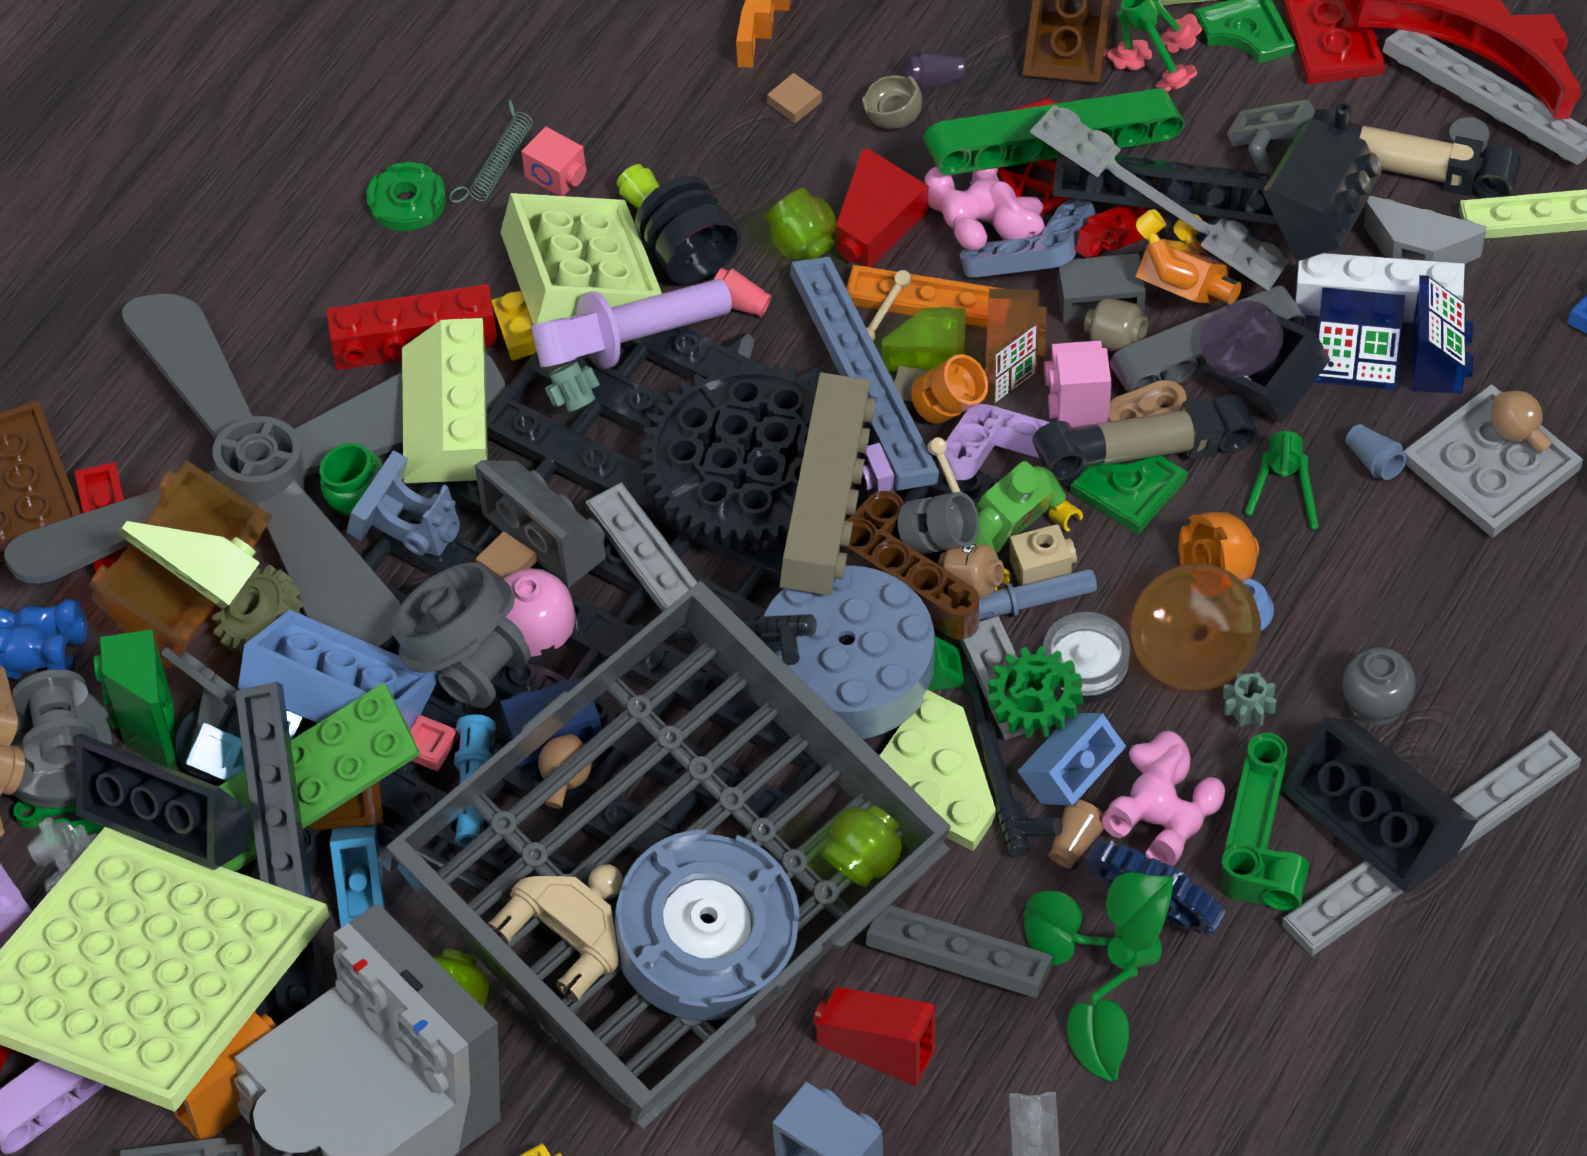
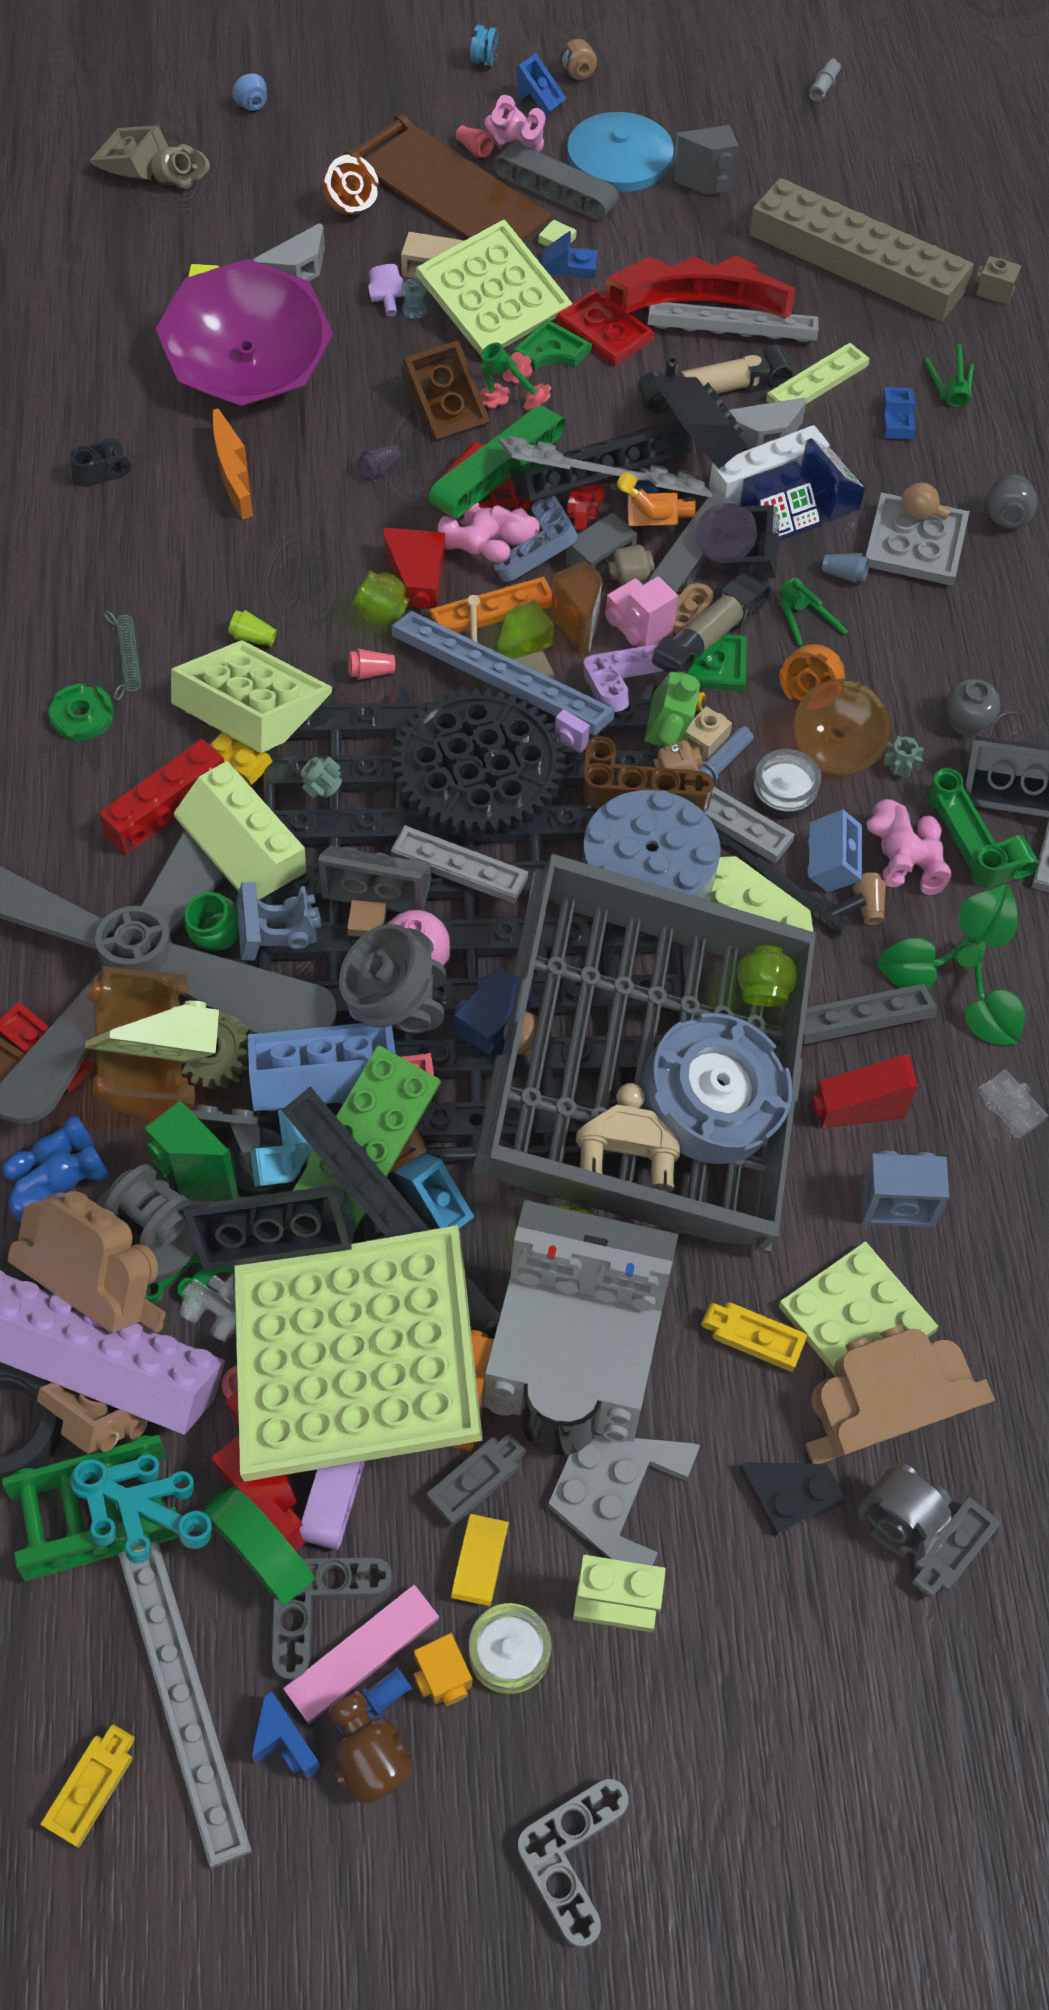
camera: 40 degrees left, 5 degrees up
(473, 752) = (461, 1067): dark azure pin -> none
(554, 162) = (173, 637): coral brick -> none
(601, 329) = (313, 727): lavender piece -> none
(688, 230) = (309, 636): black wheel -> none
(769, 628) = (614, 862): black piece -> none
(794, 98) = (299, 521): medium nougat tile -> none
(825, 484) = (563, 751): dark tan brick -> none
(893, 102) = (371, 492): dark tan hair -> none
(937, 447) = (603, 694): tan hinge -> none
(939, 523) = (652, 734): dark grey wheel -> none
(949, 389) = (566, 654): orange wheel -> none
(1036, 687) = (773, 808): green gear -> none
(1188, 904) = (945, 899): dark blue gear -> none
(1268, 123) = (622, 397): dark grey plate -> none
(1469, 128) = (734, 348): dark grey tile -> none

